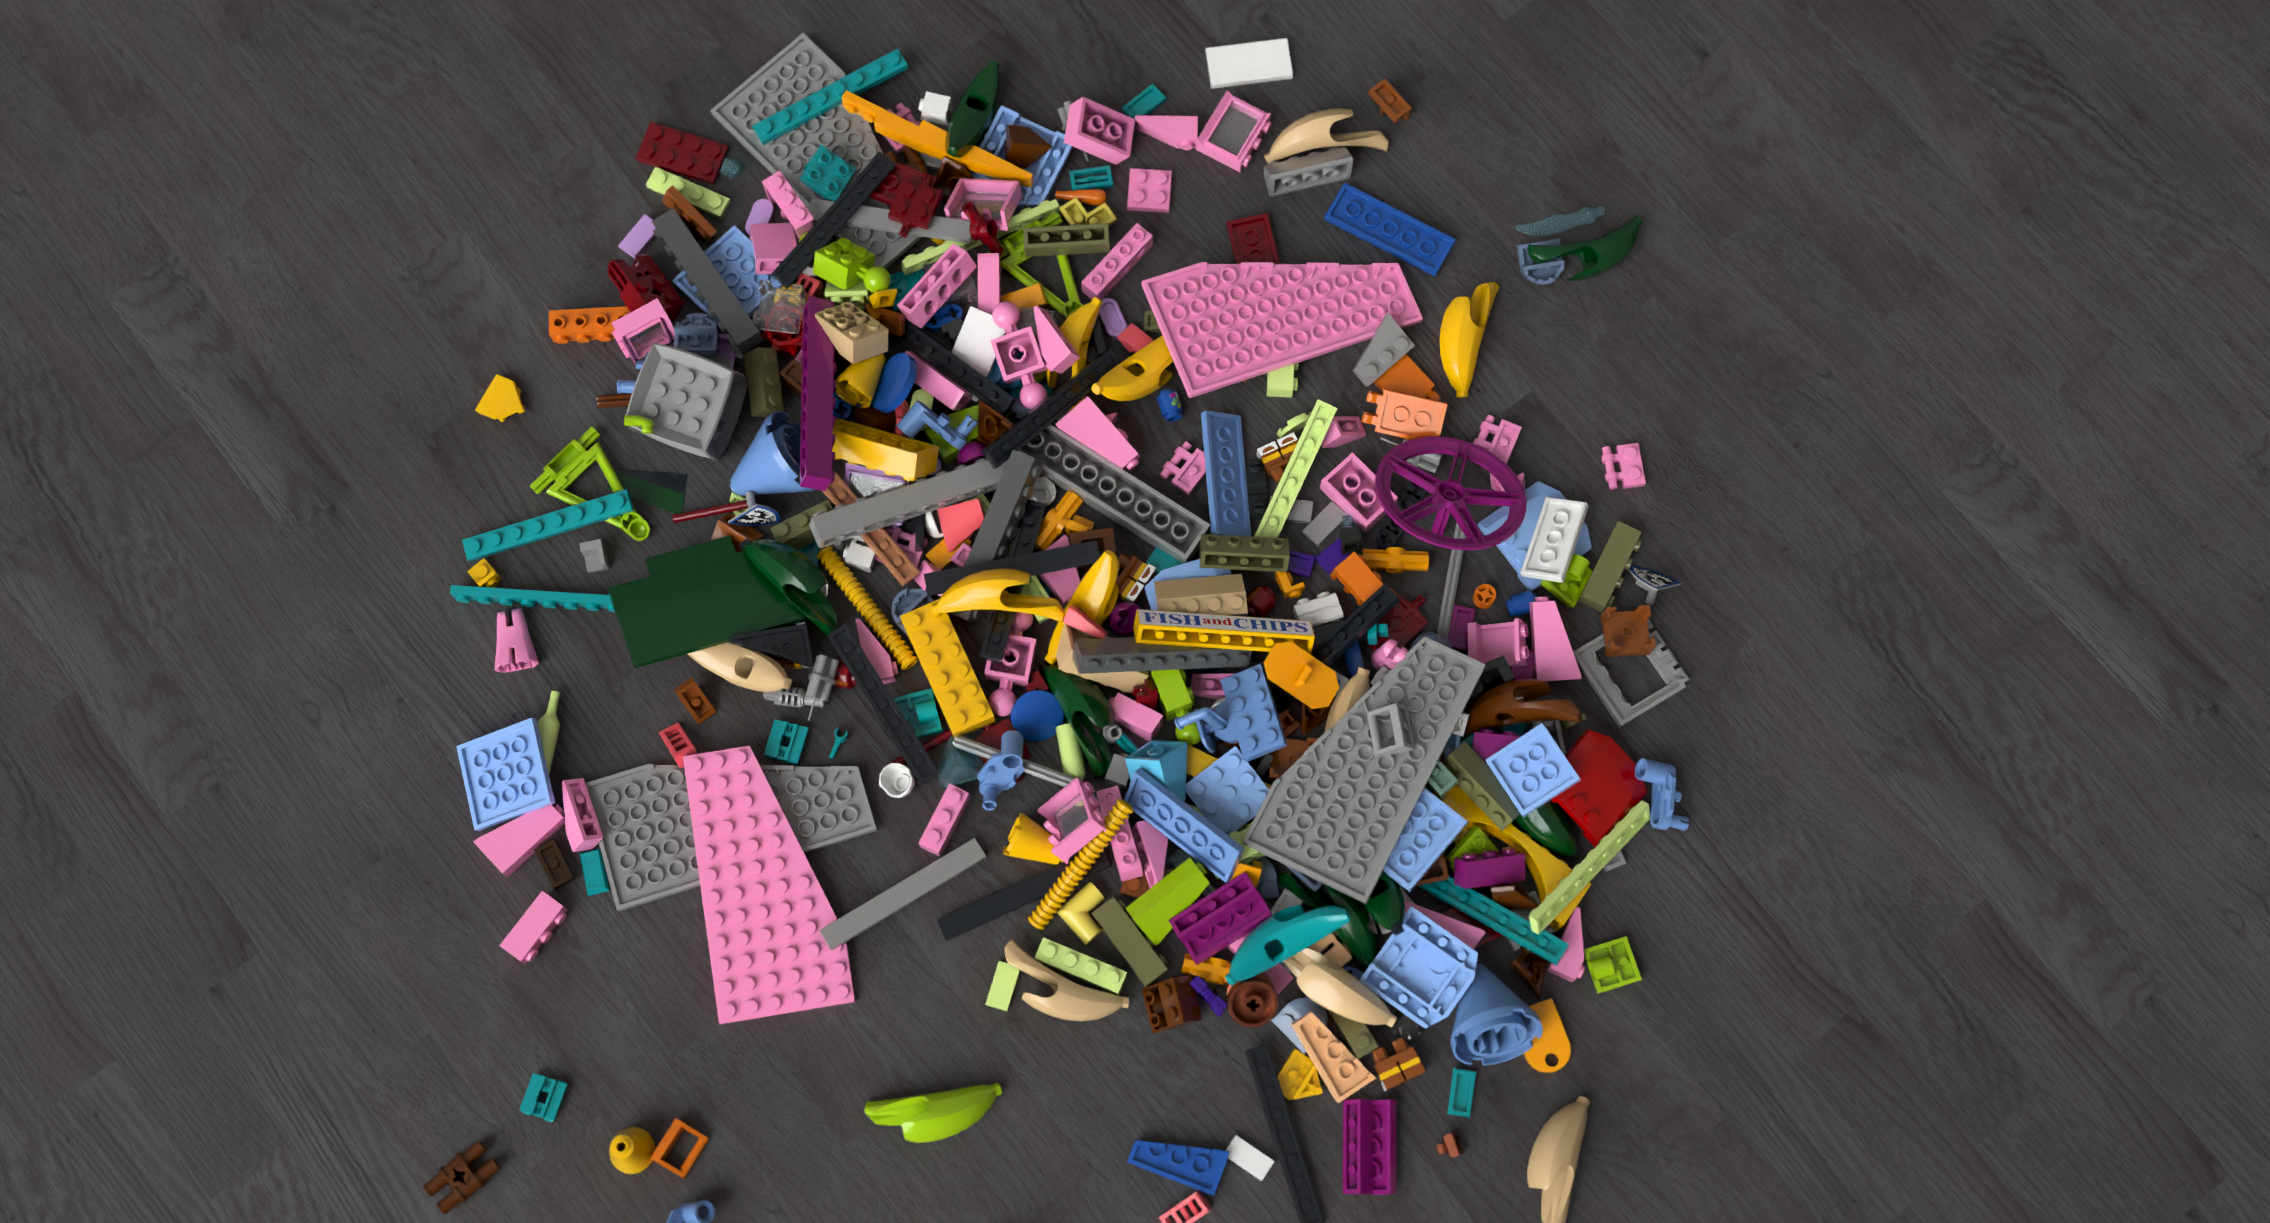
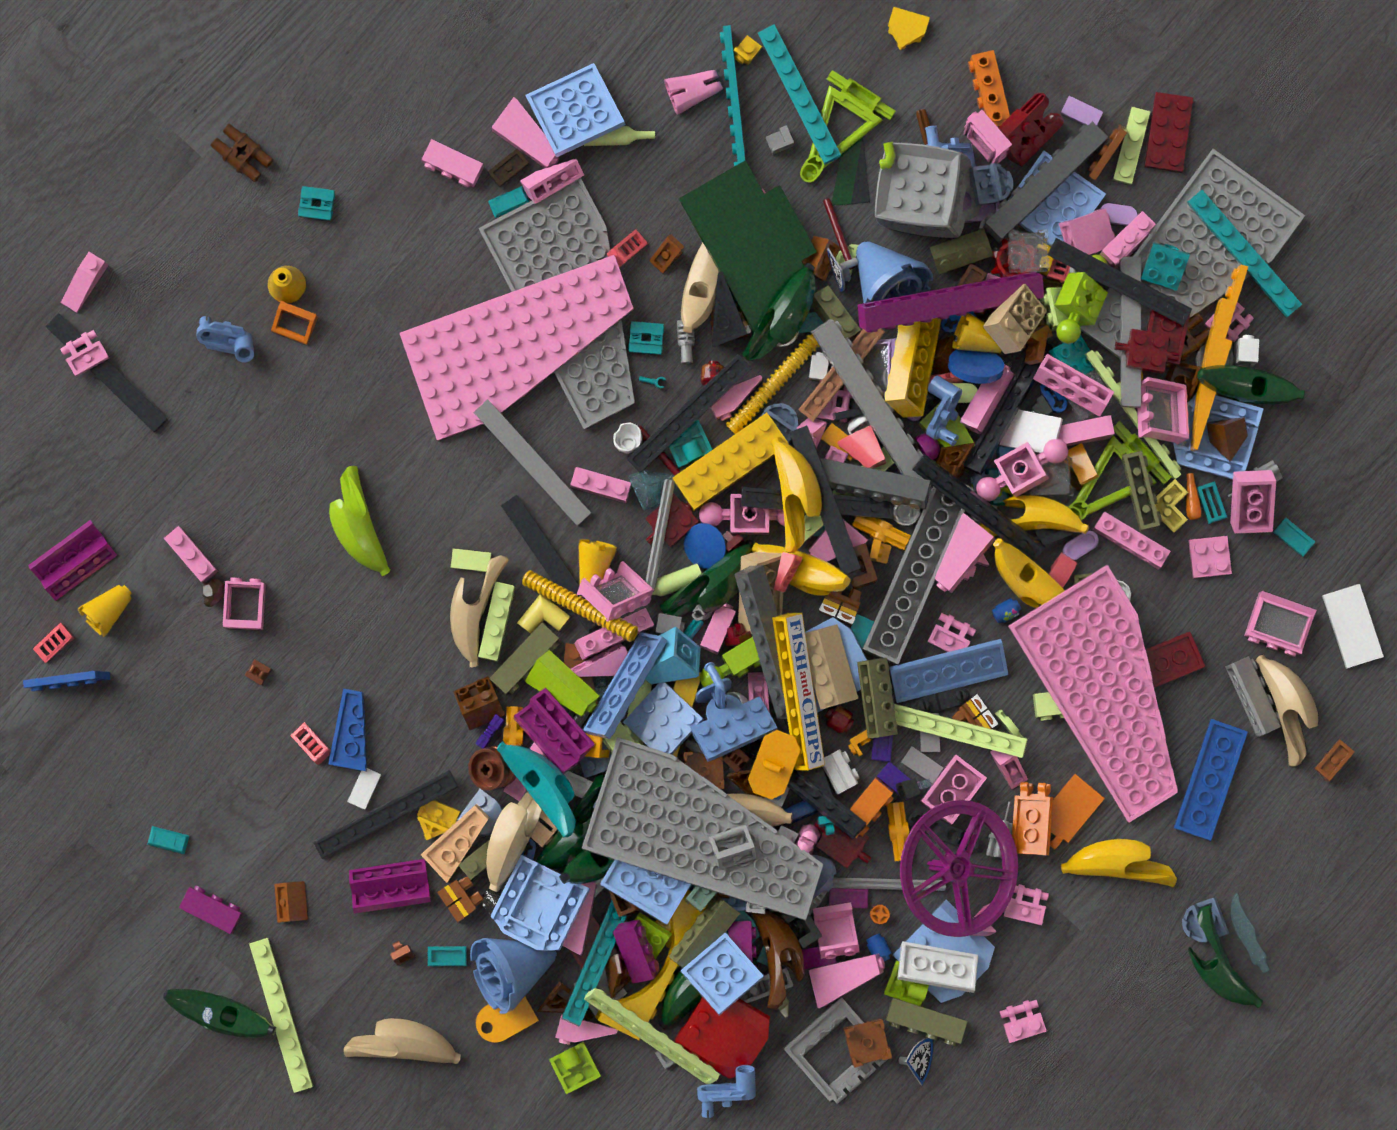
camera: 75 degrees right, 10 degrees up
(730, 168) = (1160, 178): clear light blue plate -> none
(821, 679) = (702, 357): light grey piece -> none
(883, 298) = (1053, 340): yellow slope -> none
(983, 228) = (1134, 415): dark red pin -> none
(1001, 769) = (649, 524): medium blue piece -> none
(1053, 344) = (1035, 498): bright pink slope -> none
(1123, 618) = (804, 603): magenta hair -> none
(1172, 130) = (1271, 570): bright pink slope -> none
(1383, 351) = (1090, 792): light grey wing -> none

